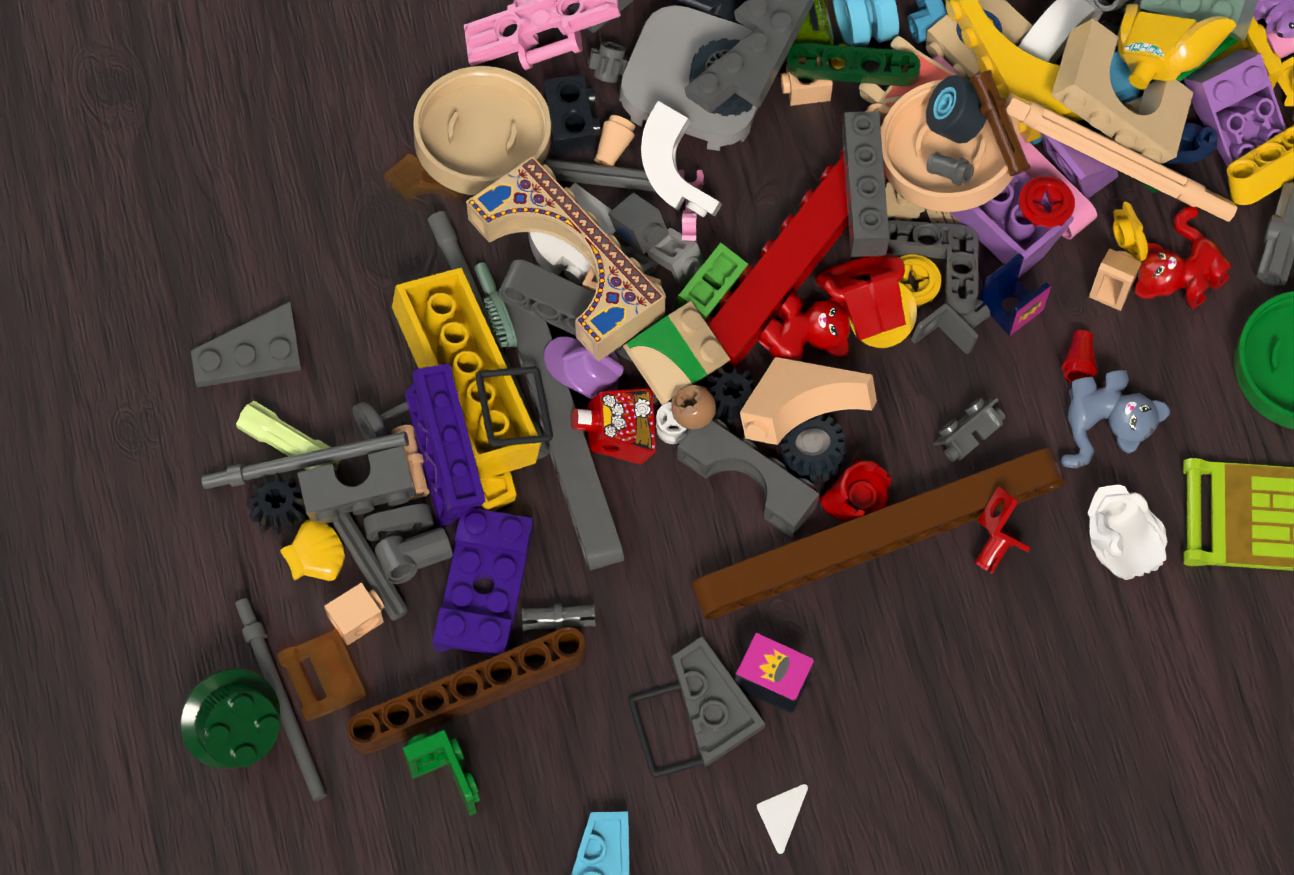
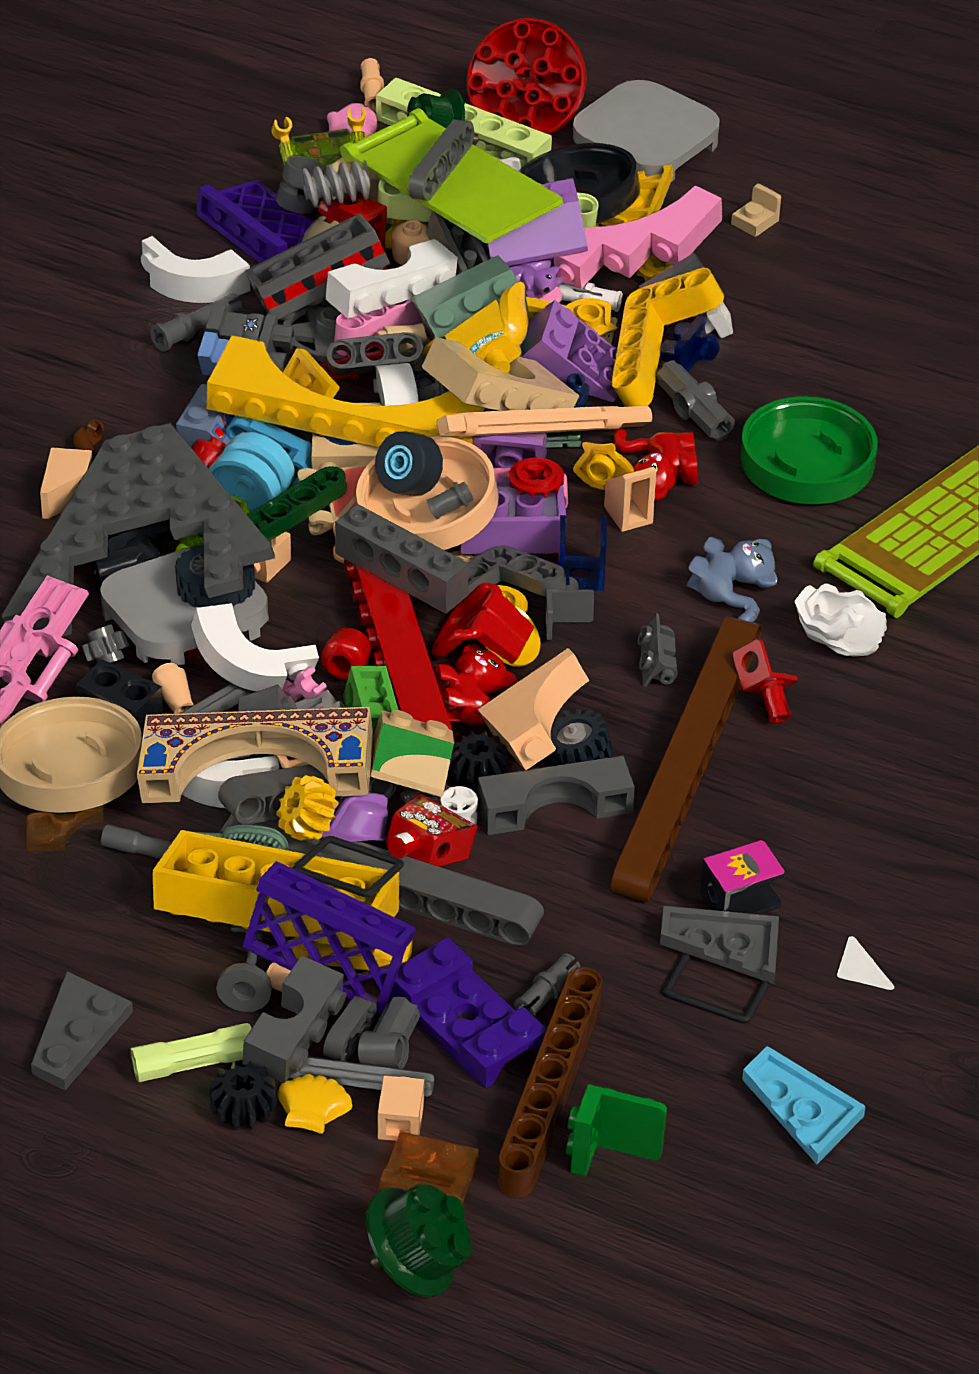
camera: 50 degrees left, 25 degrees down
(240, 474) = (186, 1102): dark grey bar -> none
(255, 636) = (343, 1191): dark grey bar -> none
(545, 333) = (307, 808): none -> yellow gear
(693, 407) = (470, 771): medium nougat piece -> none
(755, 221) = (345, 649): none -> red head
(857, 491) = (641, 740): red hair -> none
(985, 87) = (447, 434): reddish brown pin -> none
(1080, 357) = (670, 560): red cone -> none

